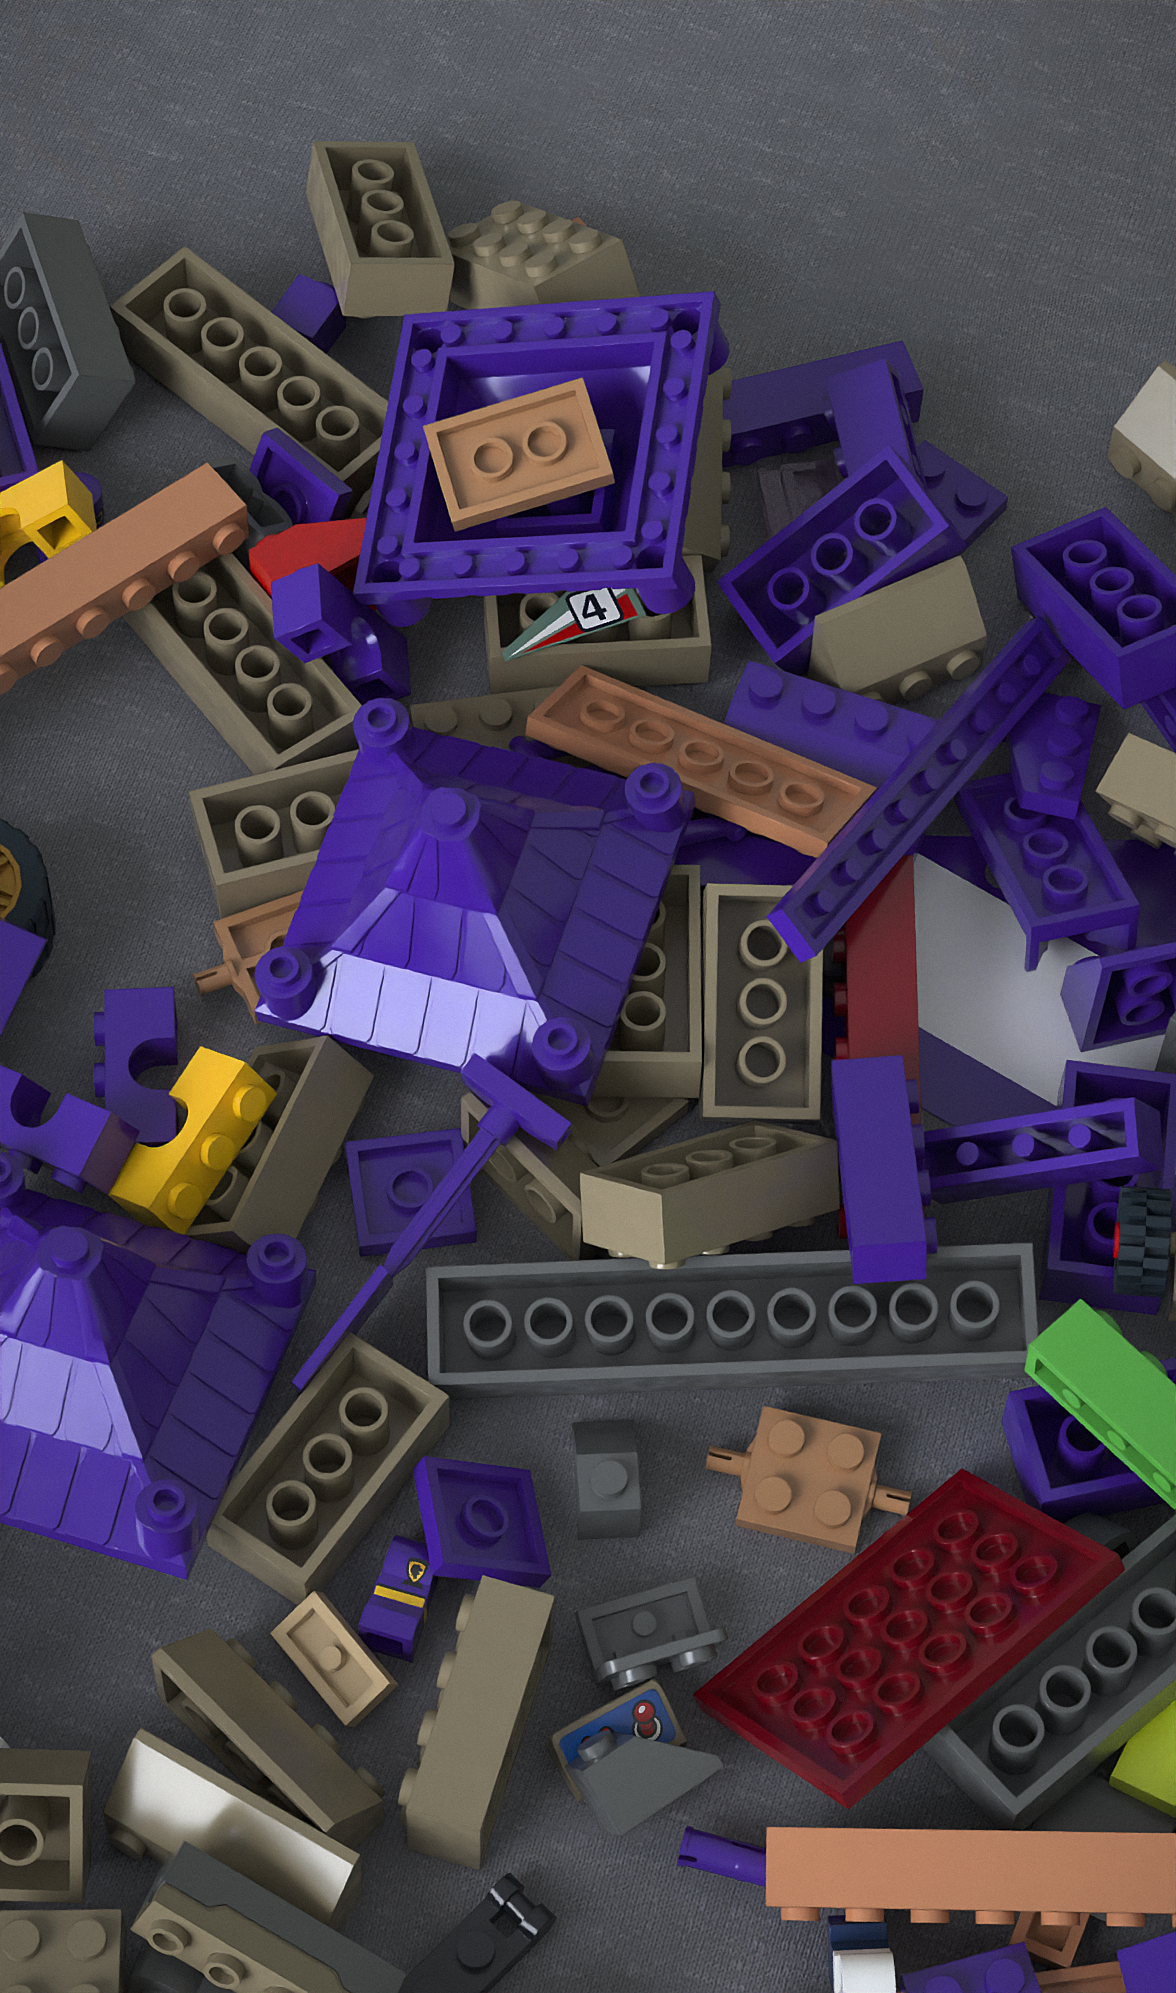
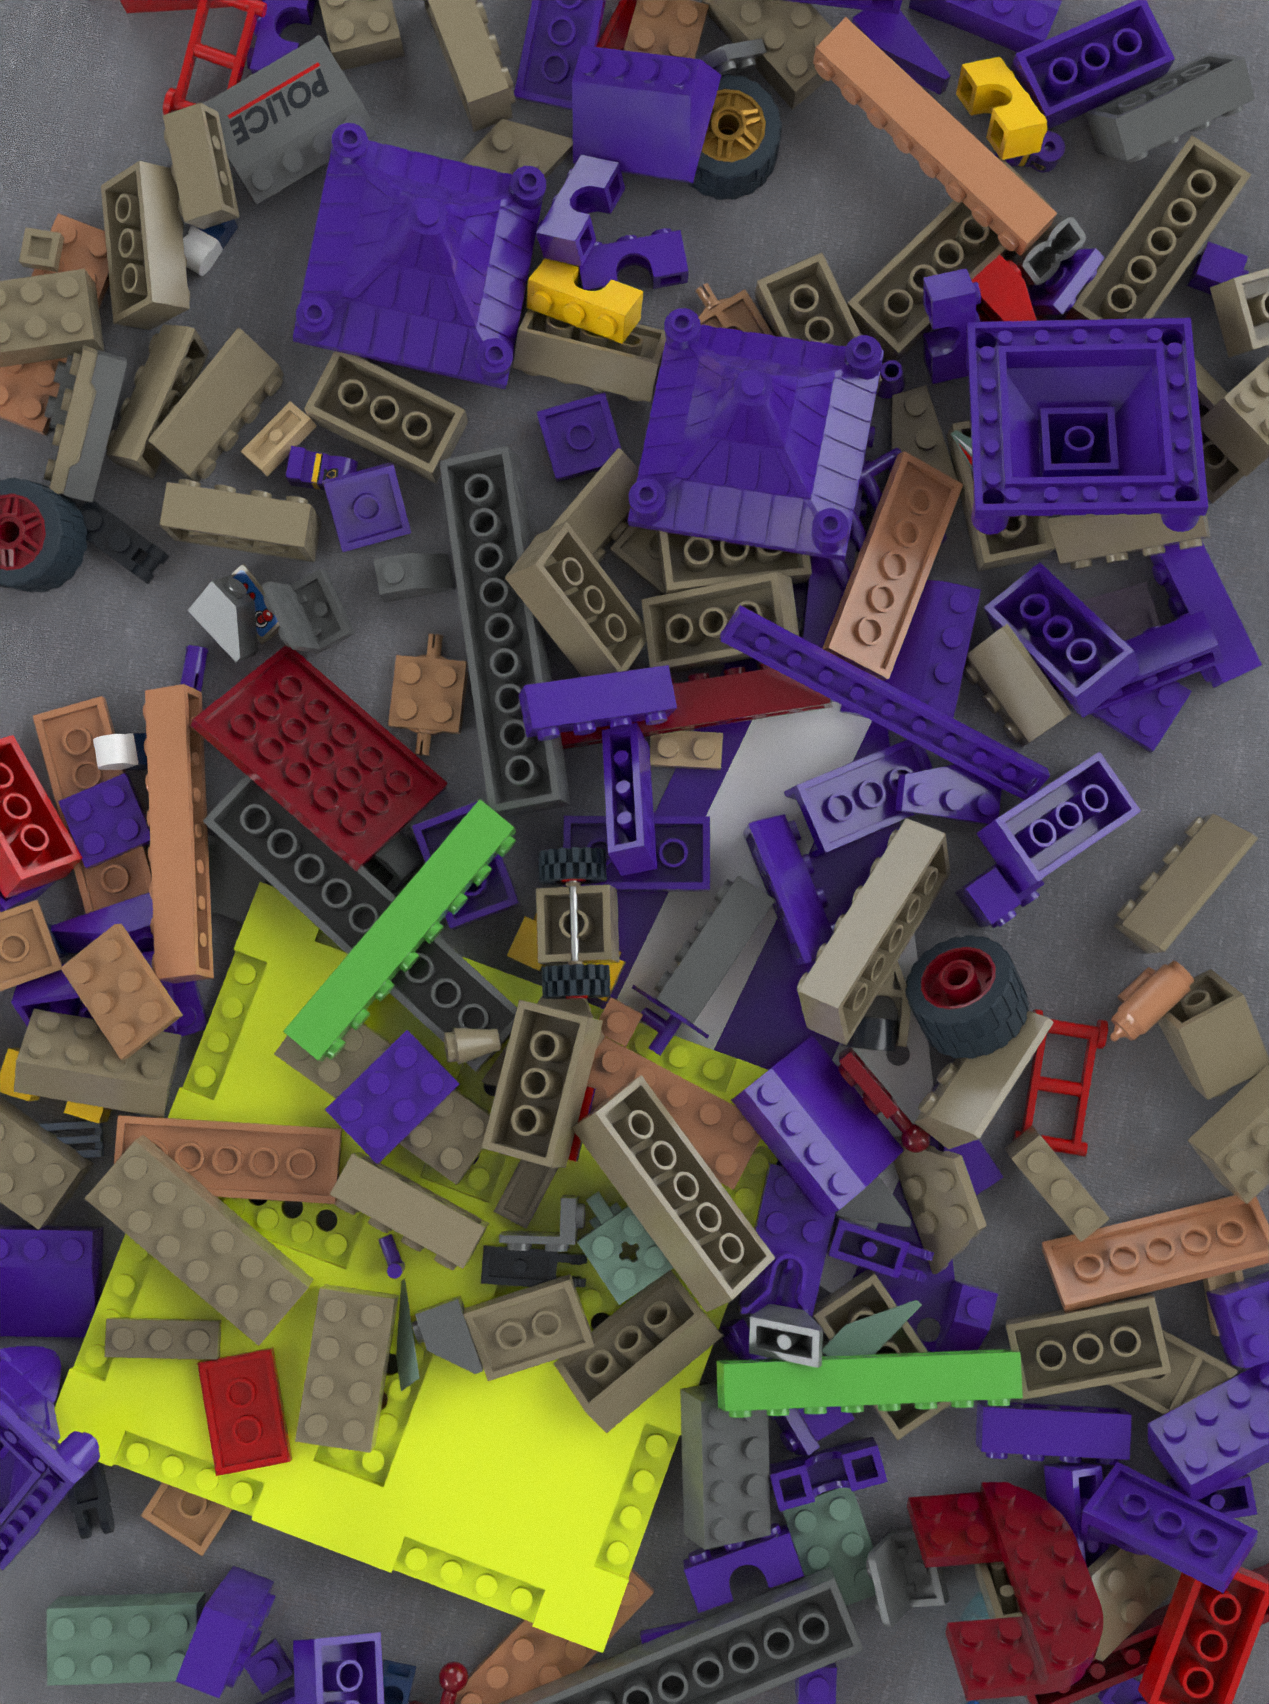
camera: 85 degrees right, 25 degrees up
(509, 1110) = (607, 475): dark purple piece -> none
(519, 454) = (1077, 405): medium nougat plate -> none
(946, 1088) = (687, 750): none -> tan plate

